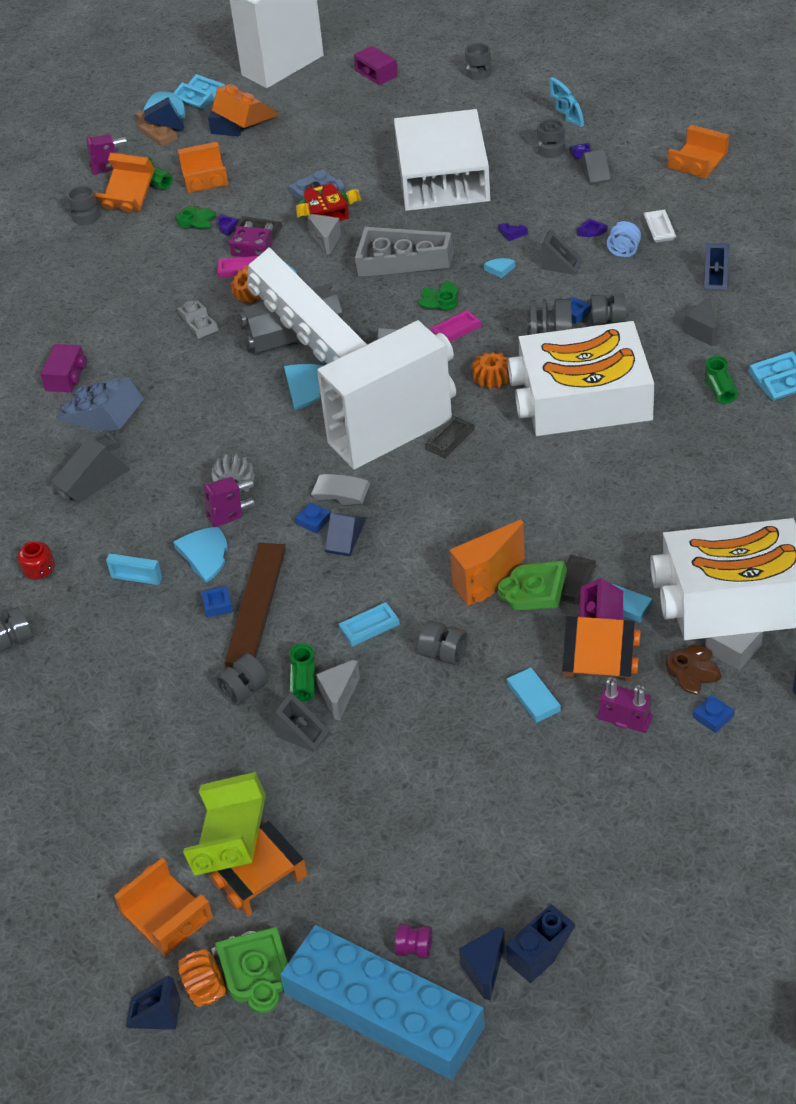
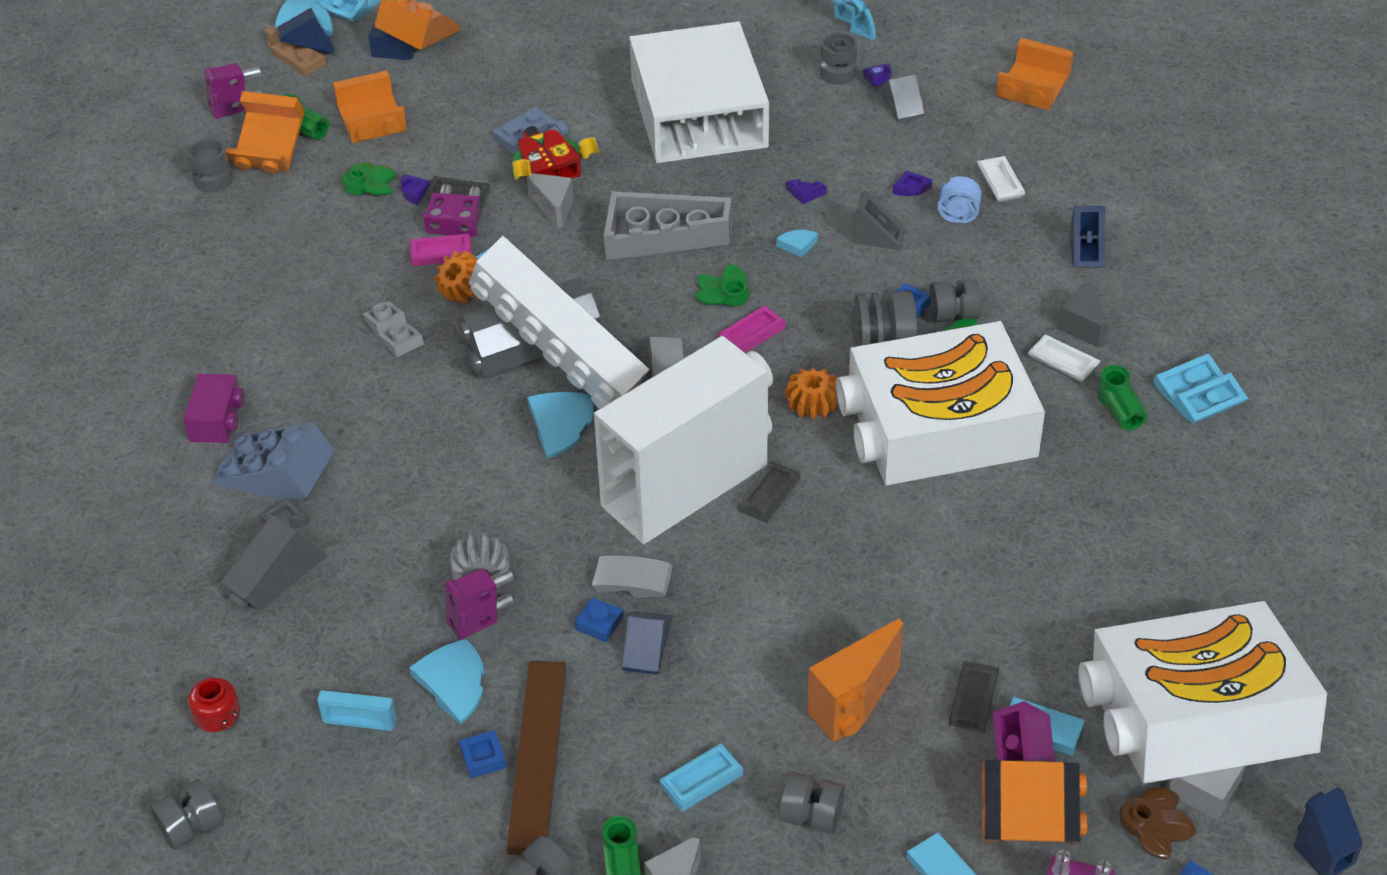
camera: 10 degrees left, 0 degrees up
(533, 586) = (922, 711): bright green plate -> none
(683, 352) = (1063, 358): none -> white tile

